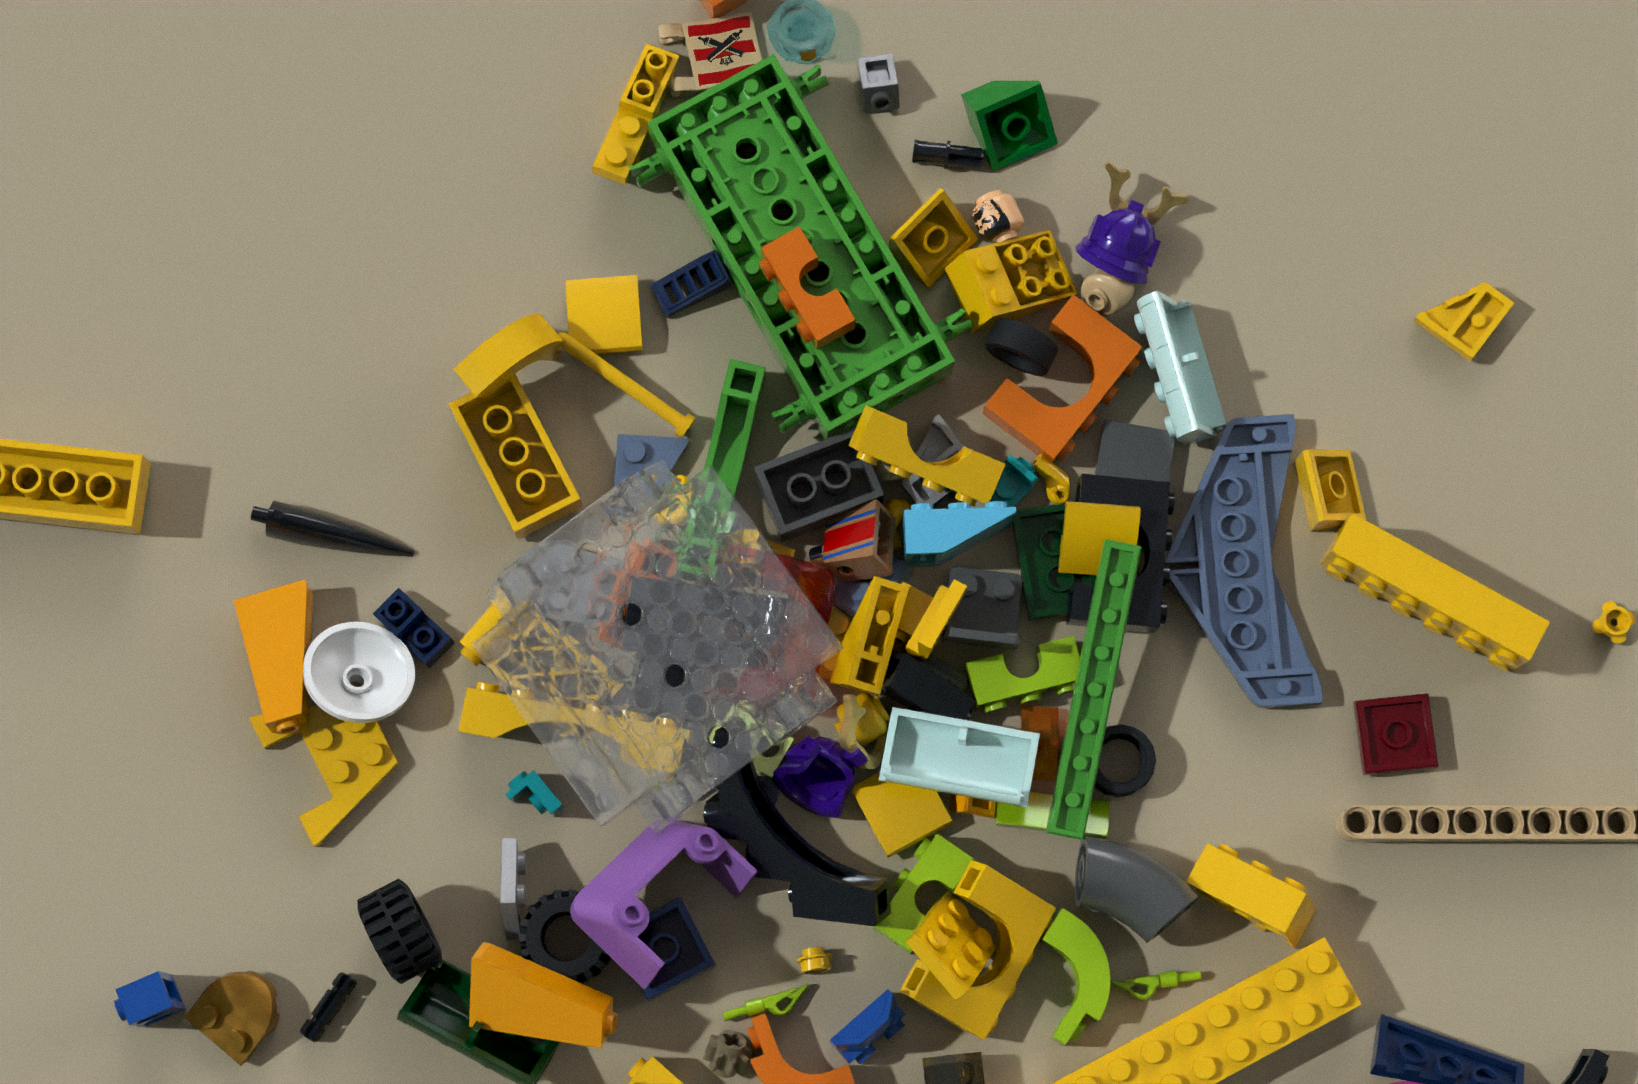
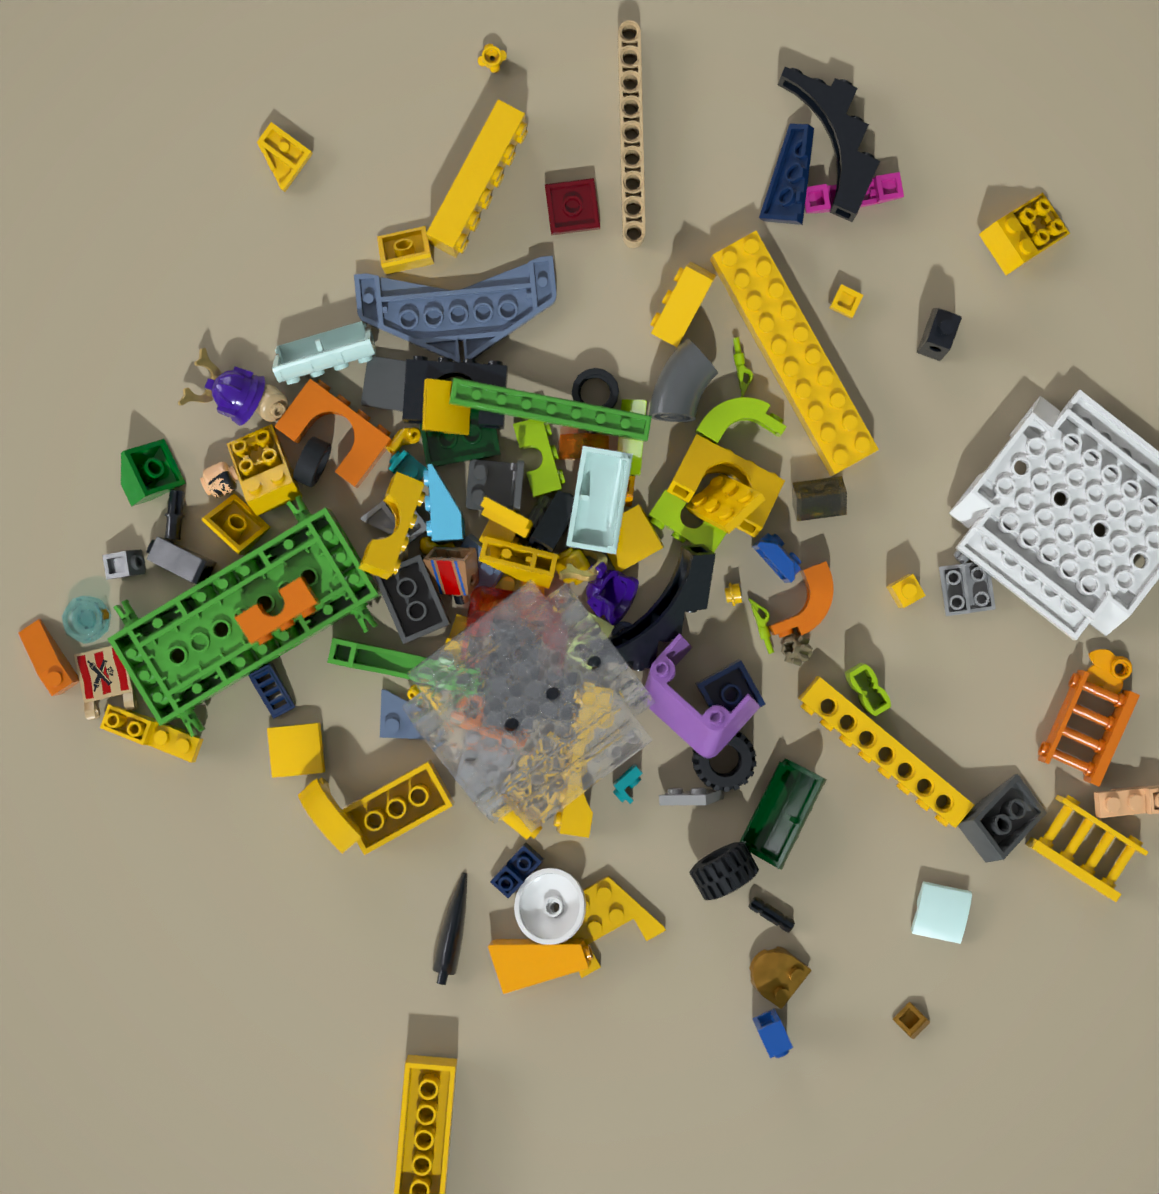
camera: 90 degrees left, 10 degrees up
(536, 1002) = (769, 779): light orange slope -> none
(628, 385) = (345, 732): yellow bar -> none
(882, 159) = (180, 560): none -> slope

